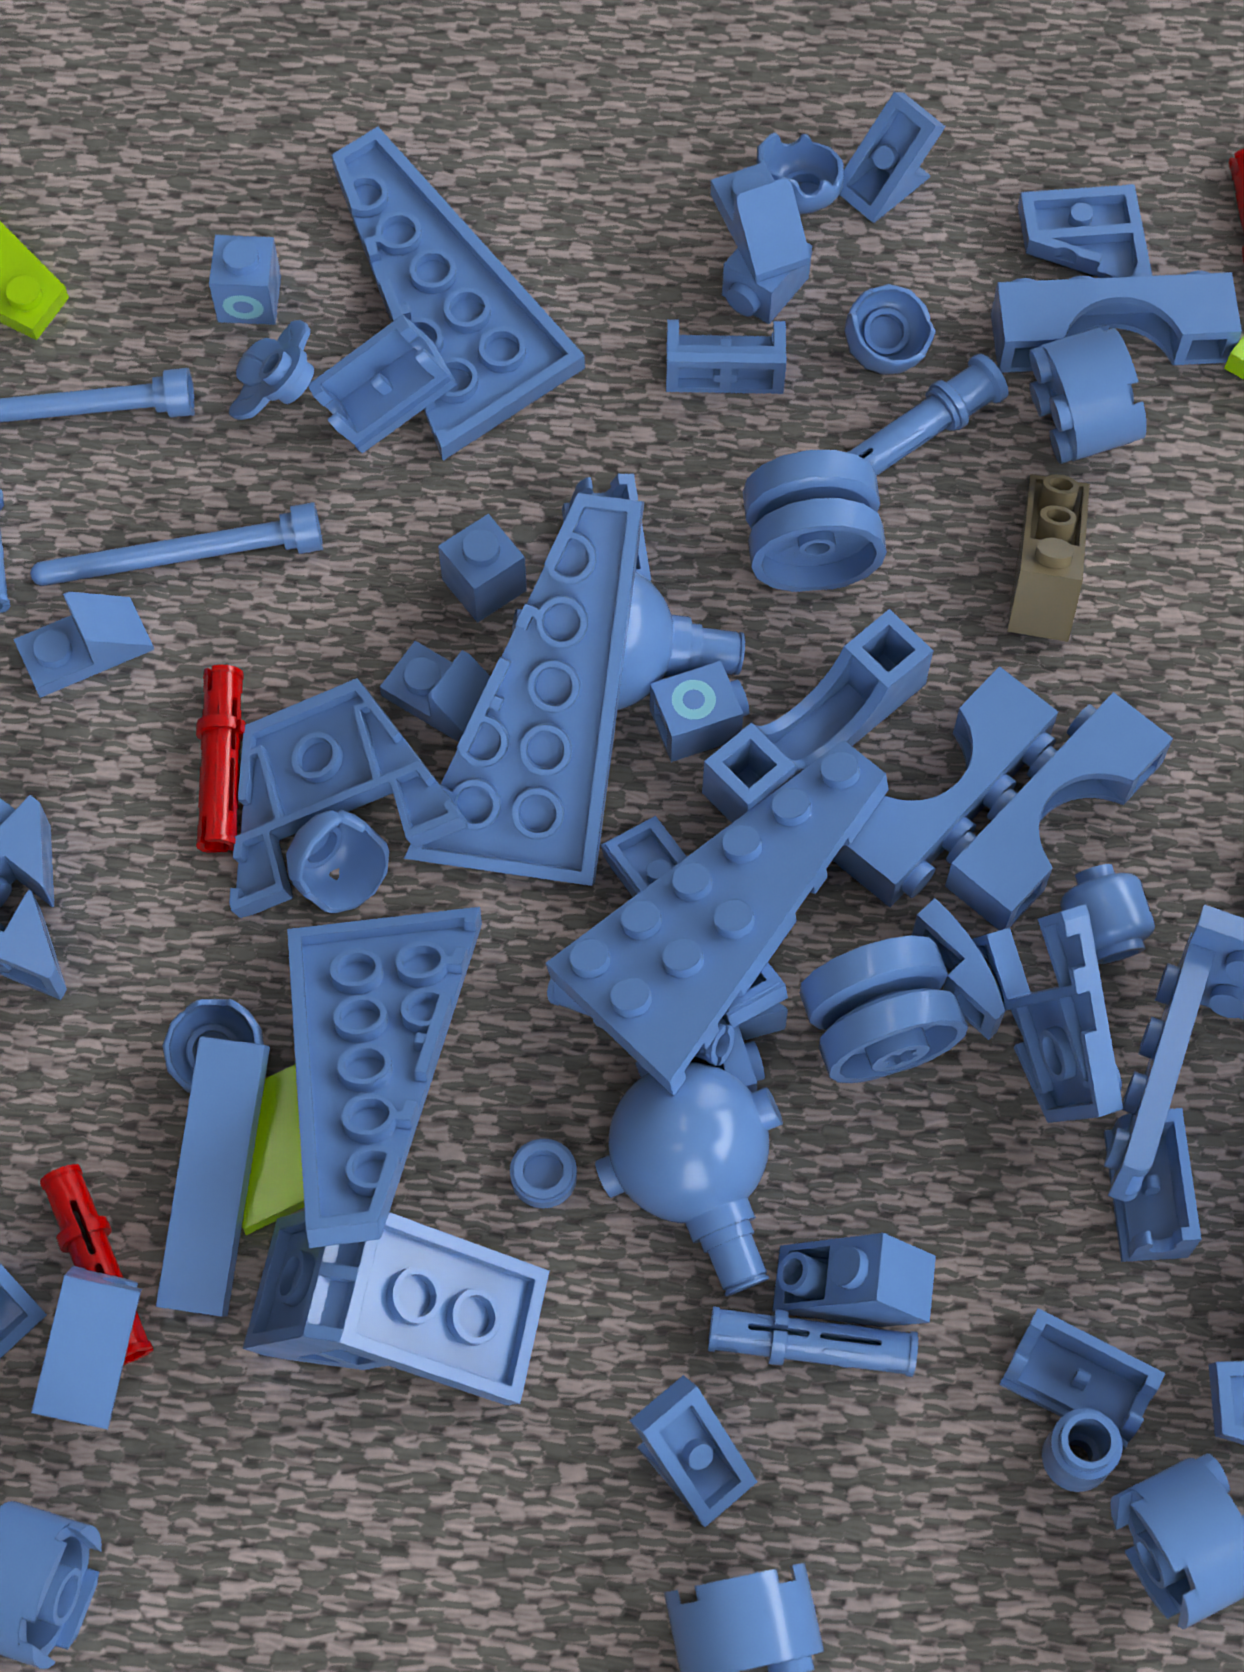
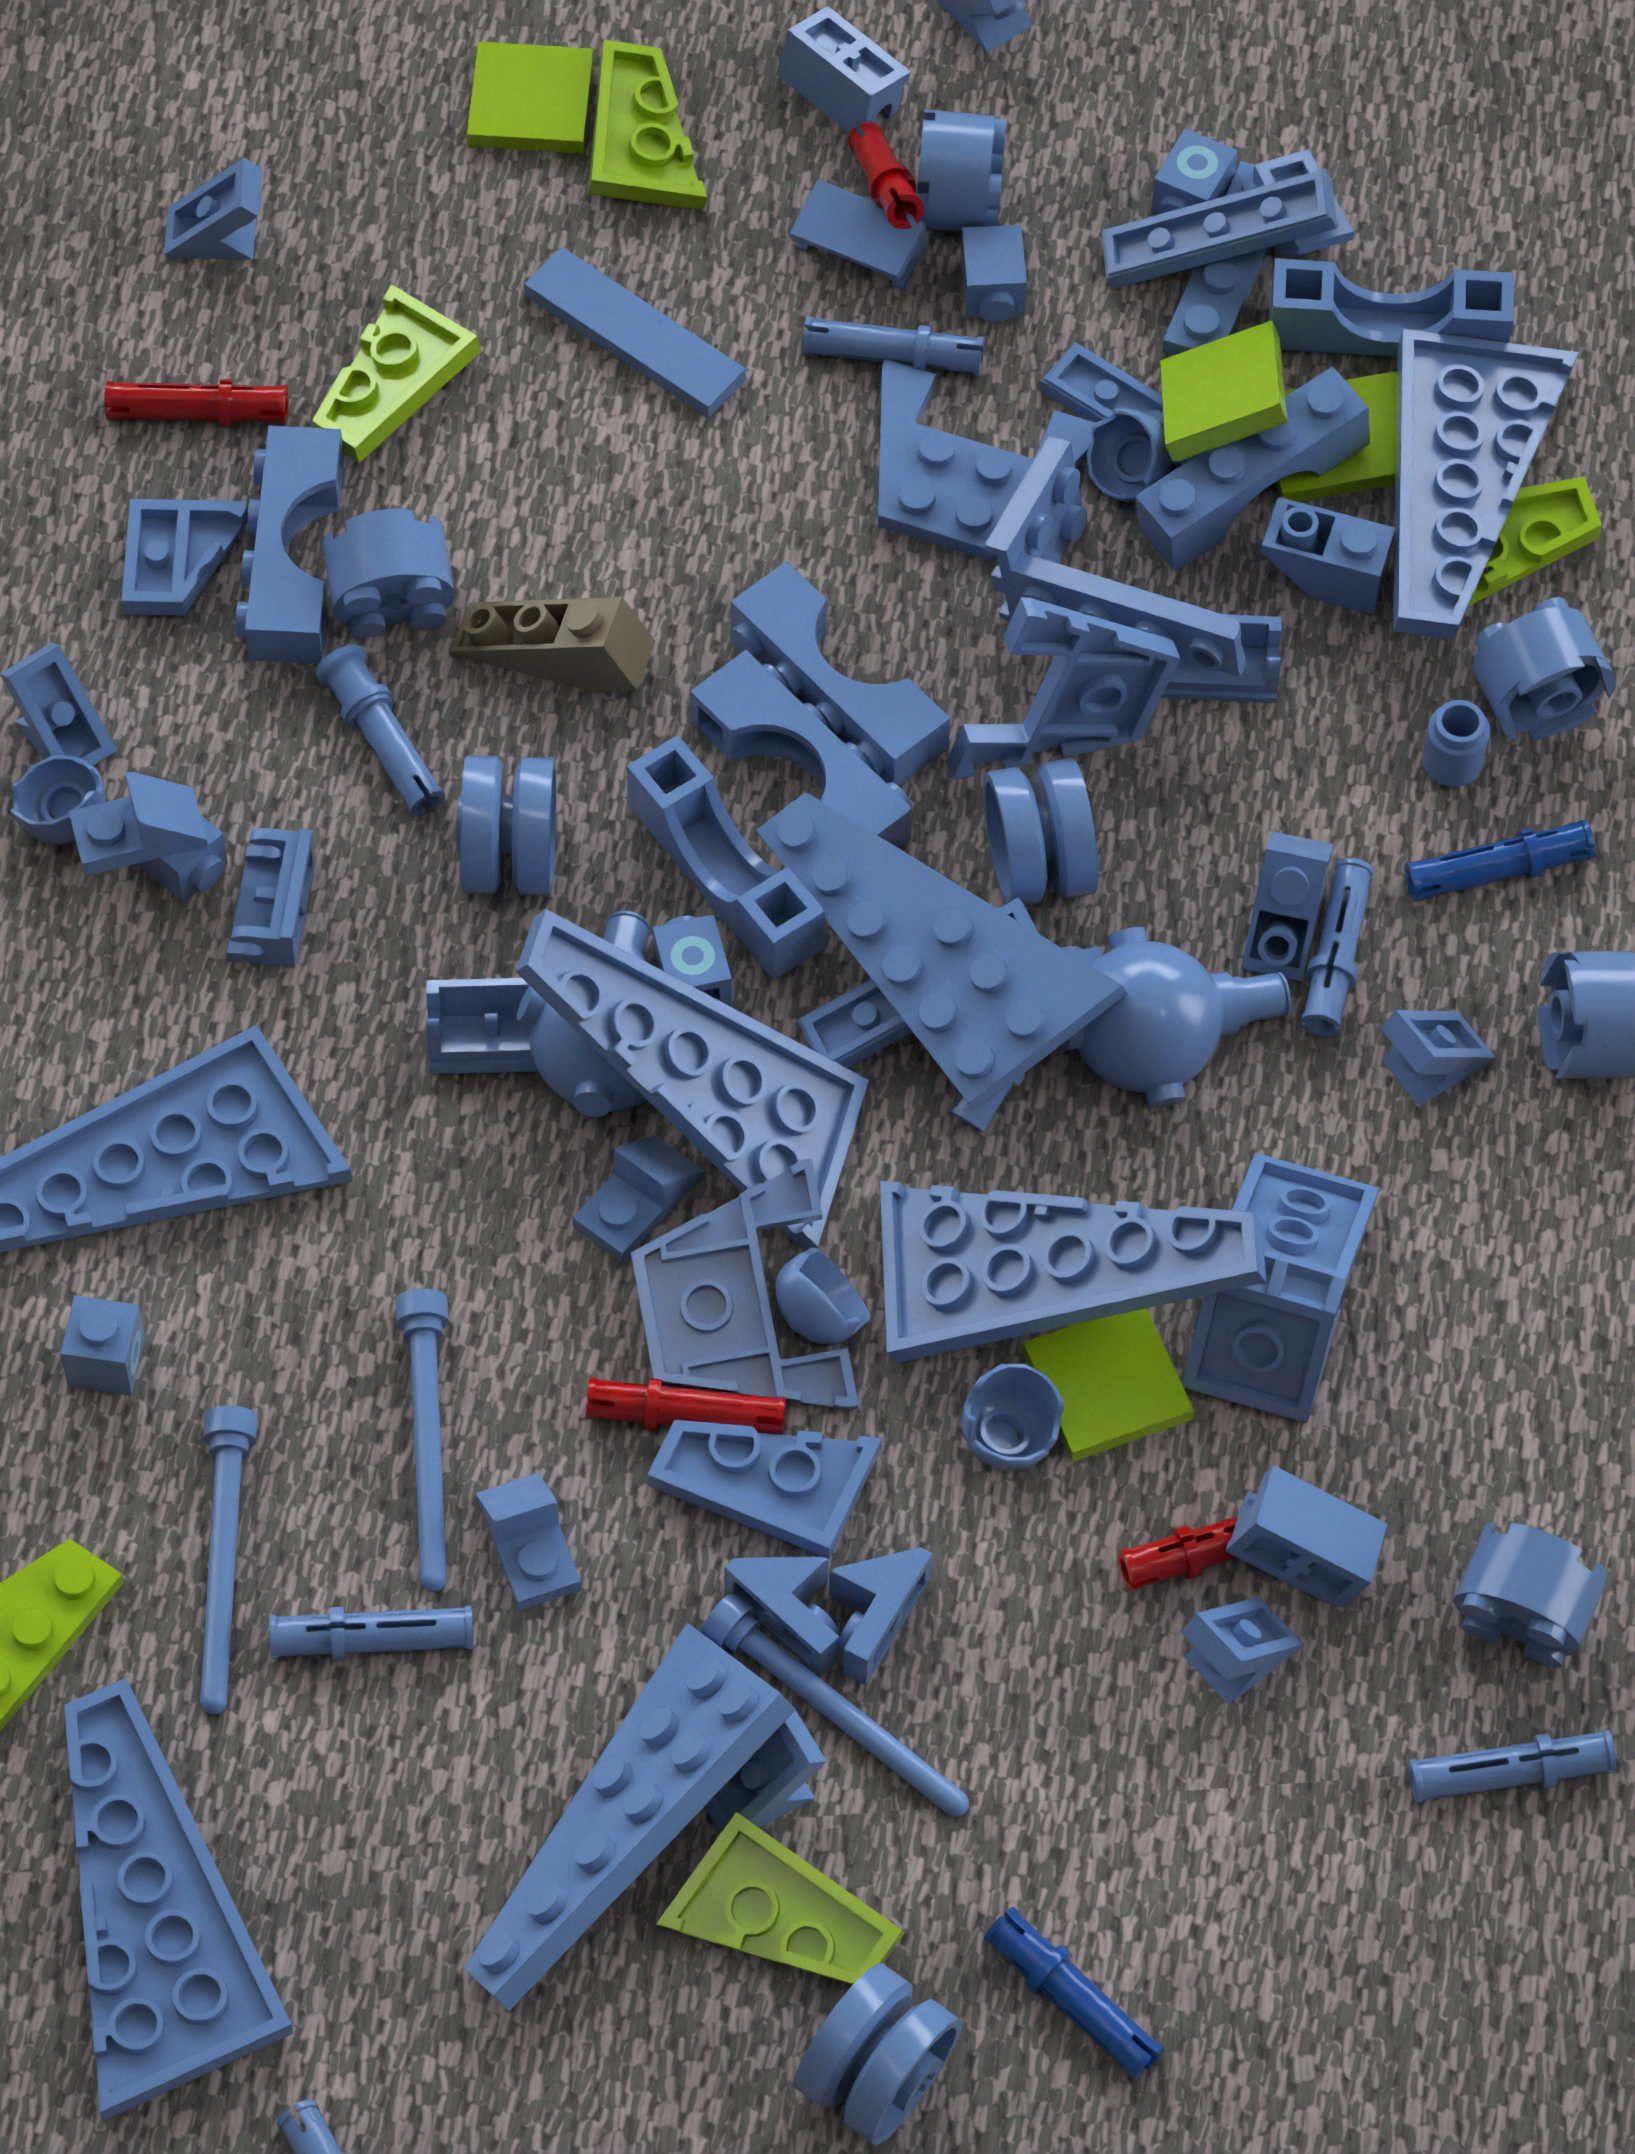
camera: 85 degrees left, 5 degrees down
(146, 839) = (770, 1482): none -> medium blue wing
(213, 1176) = (1144, 1420): medium blue tile -> none
(273, 371) = (221, 1331): medium blue plate -> none
(383, 383) = (273, 1210): medium blue hinge -> none
(482, 567) = (504, 1140): medium blue brick -> none
(543, 1173) = (1155, 1154): medium blue tile -> none
(889, 329) = (263, 731): medium blue hair -> none
(956, 1530) = (1521, 855): none -> blue pin
(969, 973) = (962, 782): medium blue slope -> none
(1074, 1370) = (1384, 742): medium blue hinge -> none
(1116, 911) = (951, 650): medium blue head -> none

